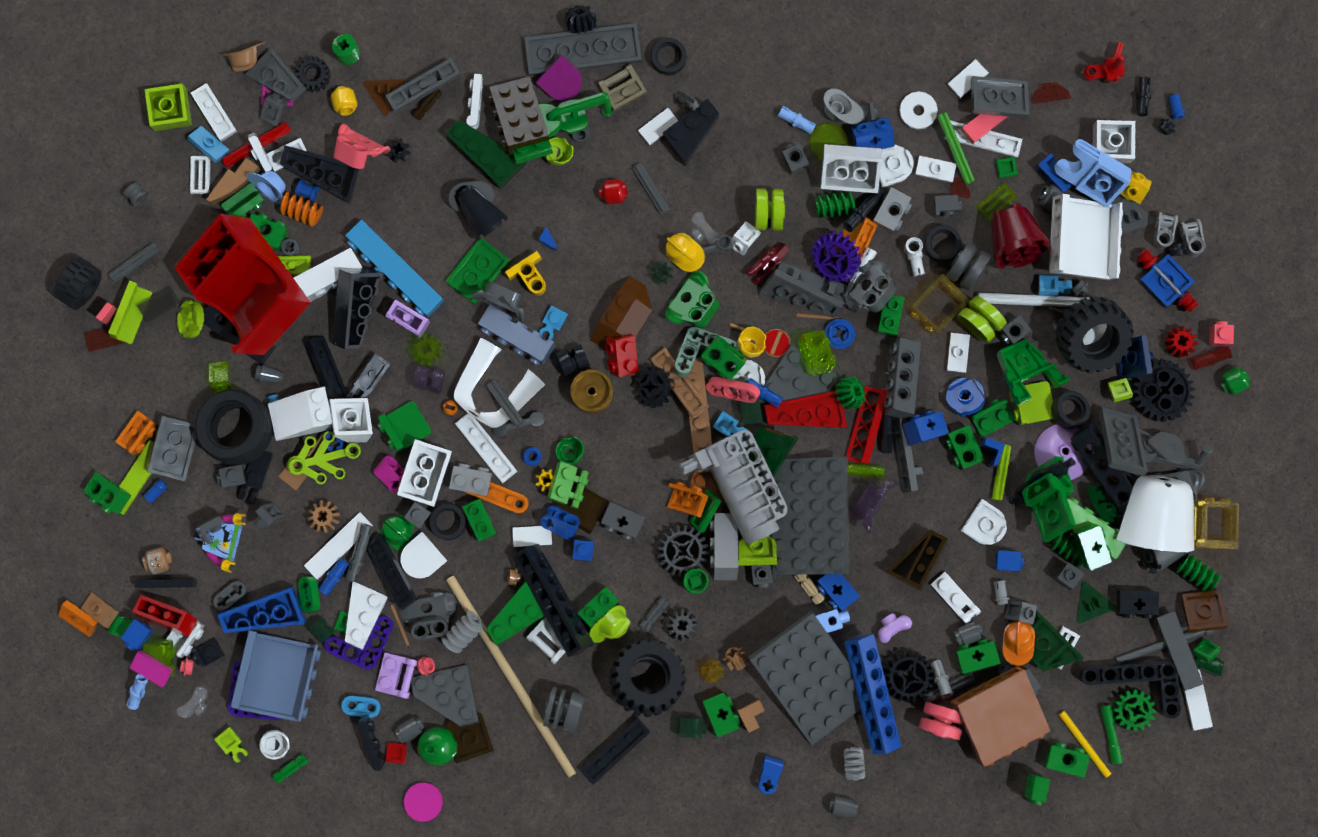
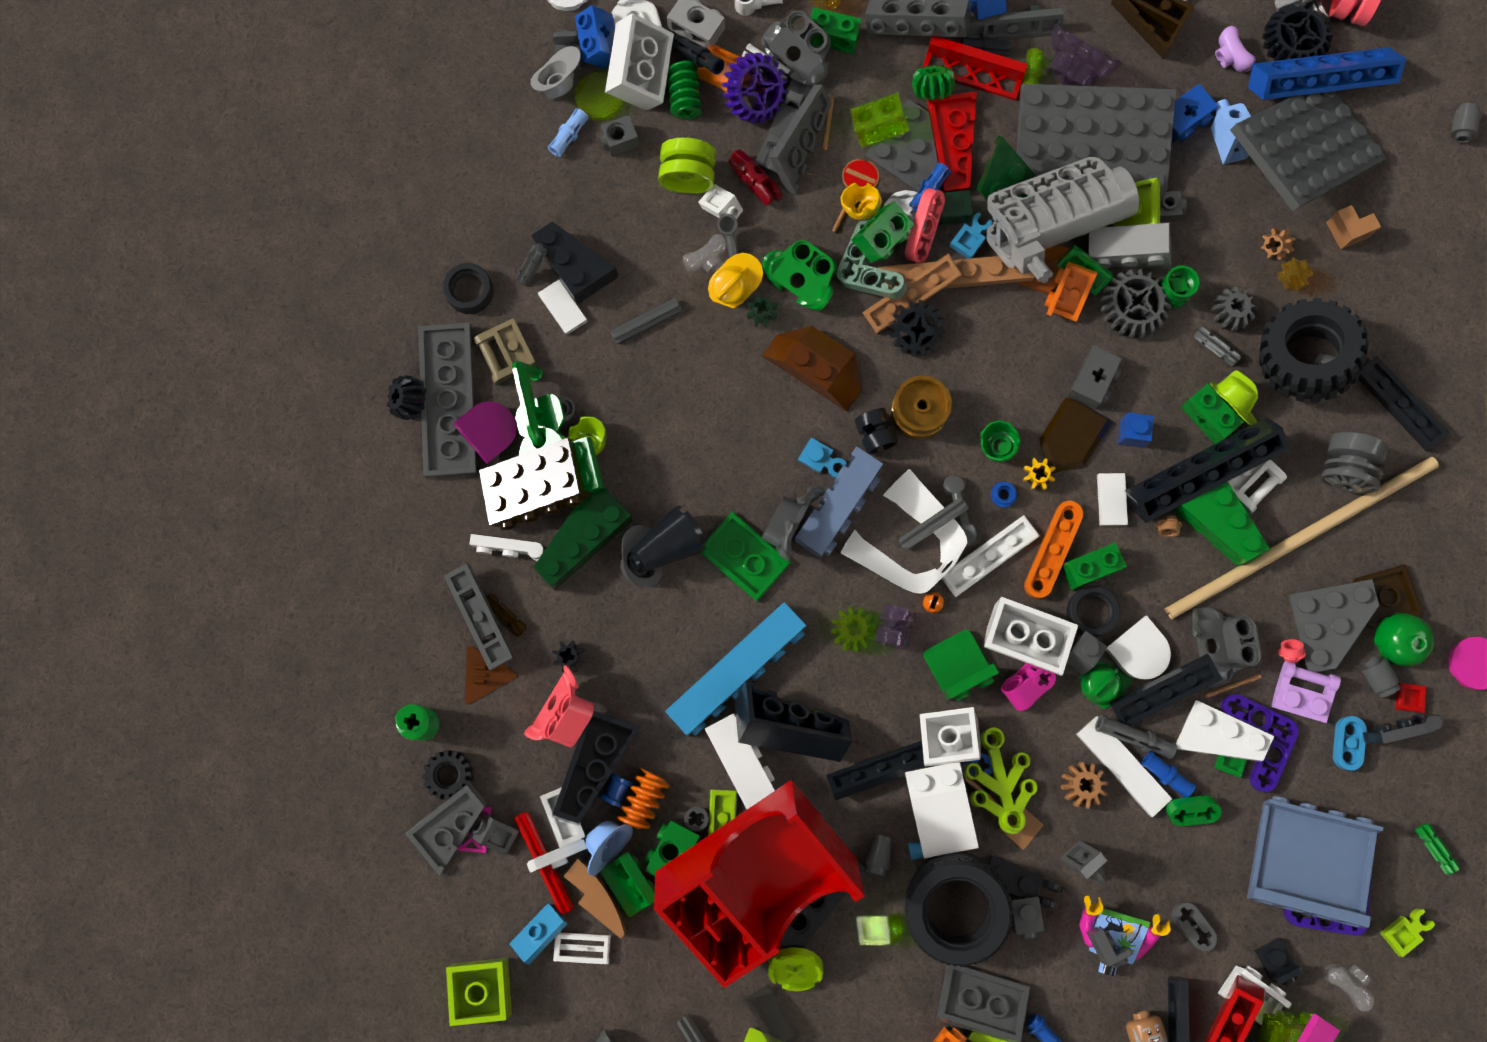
camera: 85 degrees left, 5 degrees down
(186, 666) = (1298, 994): coral plate -> none
(213, 112) = (491, 923): white plate -> none
(243, 59) = (417, 875): medium nougat piece -> none
(267, 744) = (1406, 879): white hair -> none
(272, 610) = (1220, 869): blue wedge -> none
(321, 630) = (1246, 793): clear green wheel -> none
(344, 100) = (491, 731): yellow head -> none
(368, 376) = (889, 714): hinge -> none
(407, 318) = (809, 652): lavender brick -> none
(463, 632) = (1249, 595): light grey piece -> none
(470, 480) = (1037, 575): light grey bracket -> none
(529, 279) = (757, 478): yellow tile -> none
(547, 240) = (708, 457): blue slope -> none
(562, 484) = (1047, 450): bright green plate -> none
(562, 522) = (1097, 458): blue piece -> none
(613, 191) = (647, 367): red head -> none
(622, 355) = (872, 367): red bracket -> none
(692, 727) = (1370, 303): clear green brick -> none
(712, 707) = (1364, 262): green brick -> none
(770, 771) = (1427, 209): blue piece -> none
(810, 588) = (1185, 148): tan axle -> none
(842, 325) = (857, 86): blue gear -> none
(854, 763) = (1413, 103): light grey gear -> none

